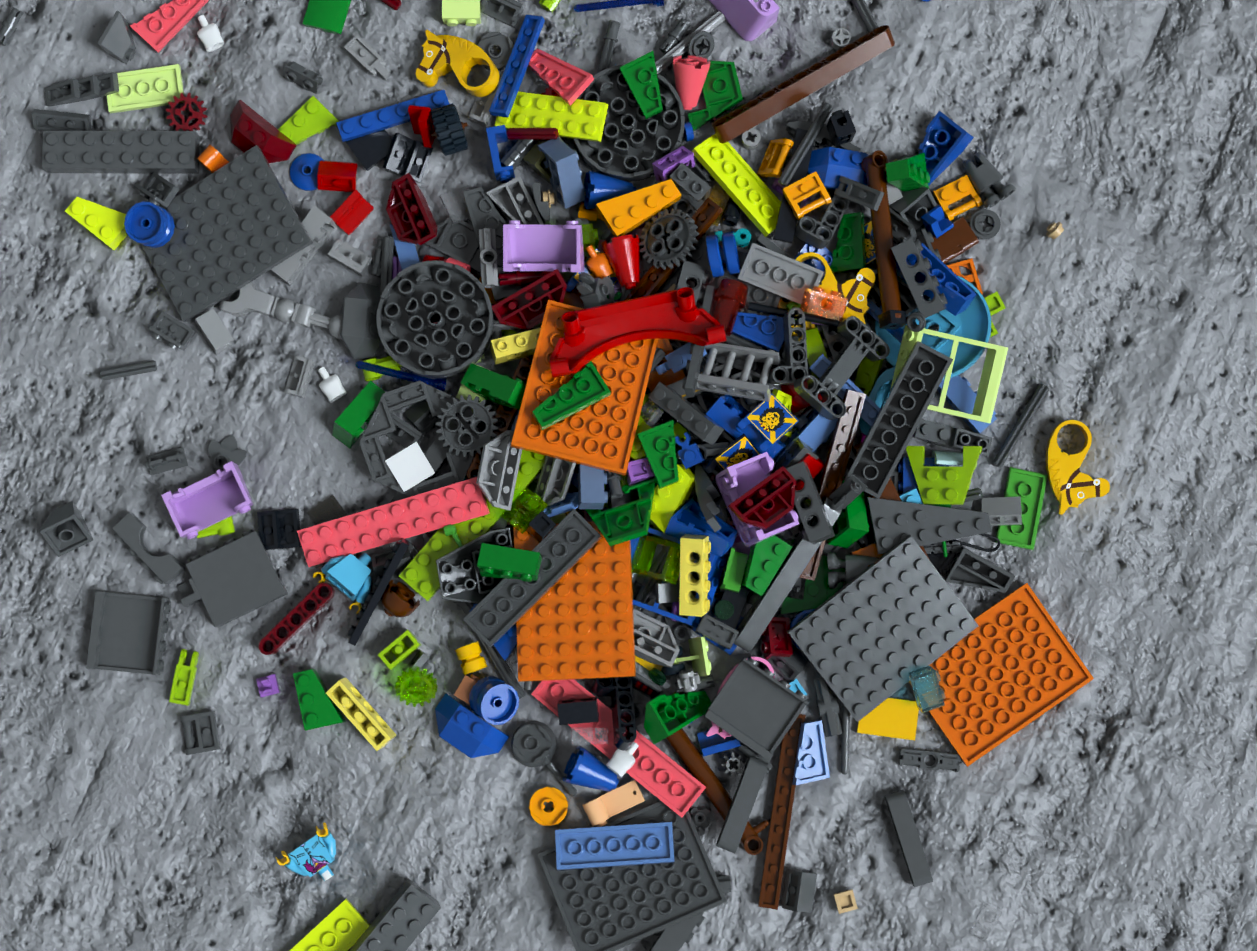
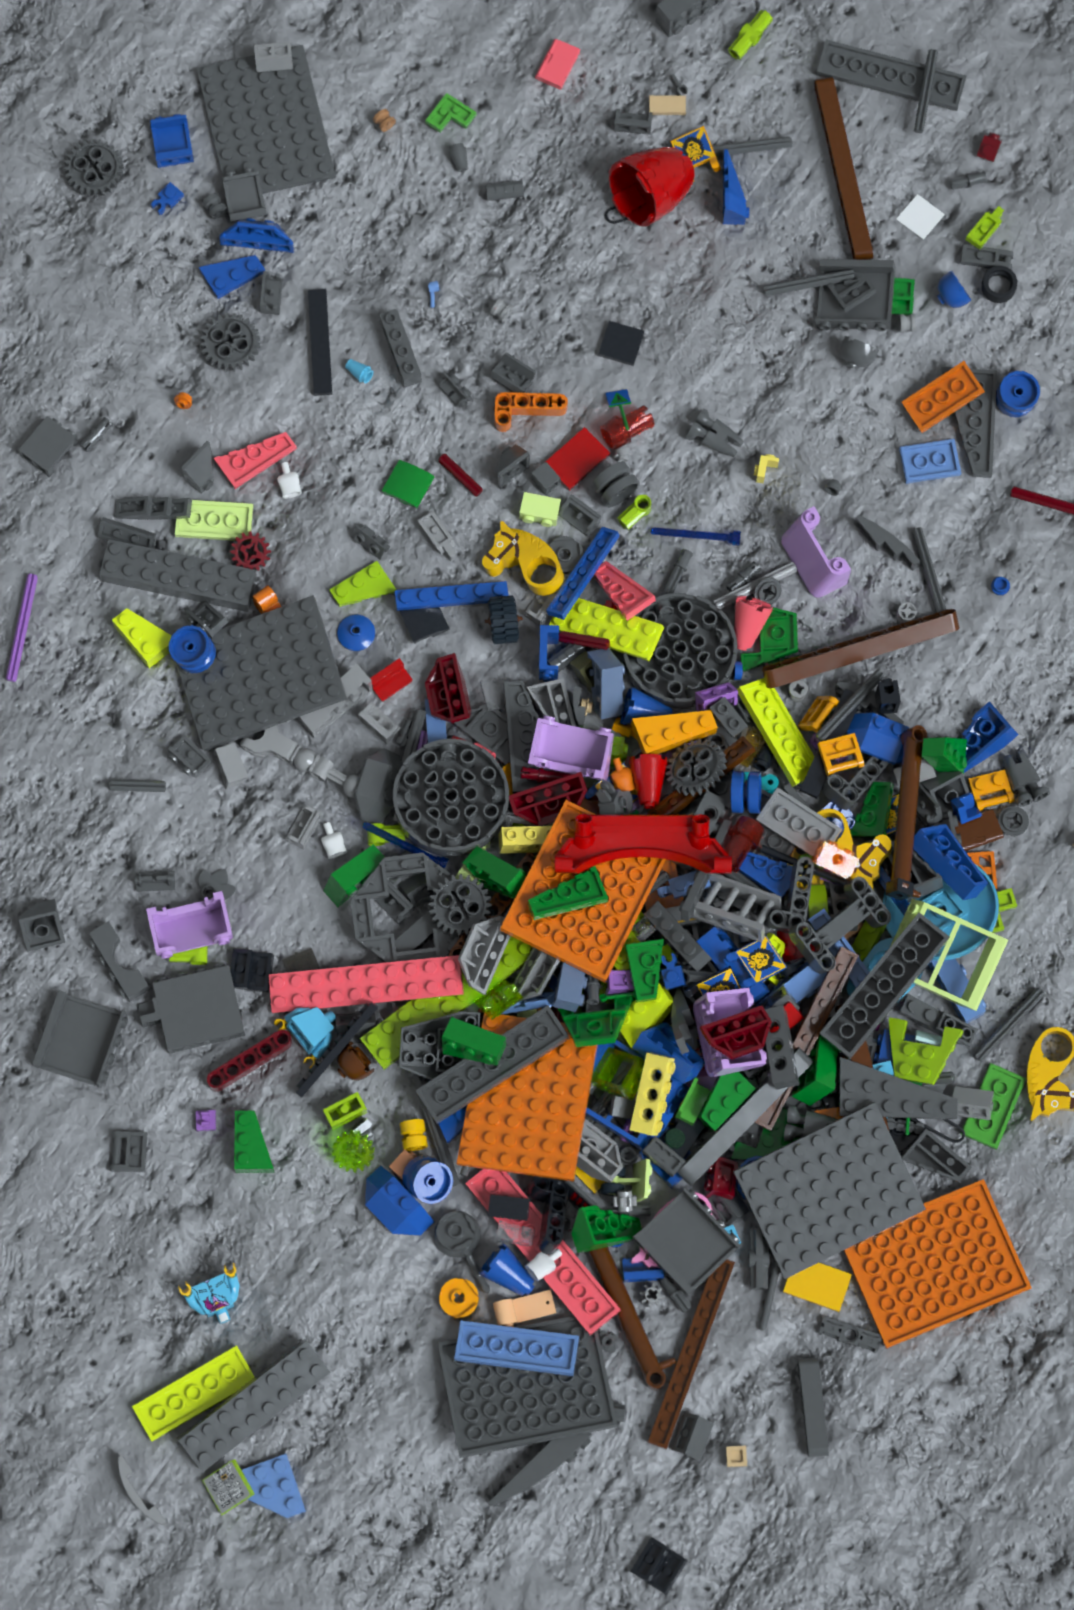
camera: 10 degrees right, 10 degrees down
(184, 679) = (124, 1096): lime hinge -> none
(252, 129) = (309, 579): dark red wedge -> none
(337, 176) = (383, 642): red panel -> none
(361, 713) = (293, 1165): light yellow brick -> none
(407, 157) = (456, 638): black slope -> none
(410, 466) = (395, 934): white sticker -> none
(422, 123) = (478, 609): red panel -> none
(451, 530) = (422, 1003): bright green hand -> none
(489, 270) = (516, 738): light grey piece -> none
(540, 526) = (511, 1015): black panel -> none
(643, 84) = (703, 615): green wing -> none
(657, 676) = (594, 1192): clear green piece -> none
(742, 804) = (652, 1334): dark grey beam -> none
(811, 754) = (732, 1302): wing -> none
(847, 492) = (819, 1045): dark grey hinge -> none
(859, 193) = (892, 762): dark grey plate -> none
(909, 271) = (921, 826): dark grey brick -> none
(912, 324) = (917, 895): dark grey plate -> none
(927, 689) = (861, 1259): clear light blue brick -> none

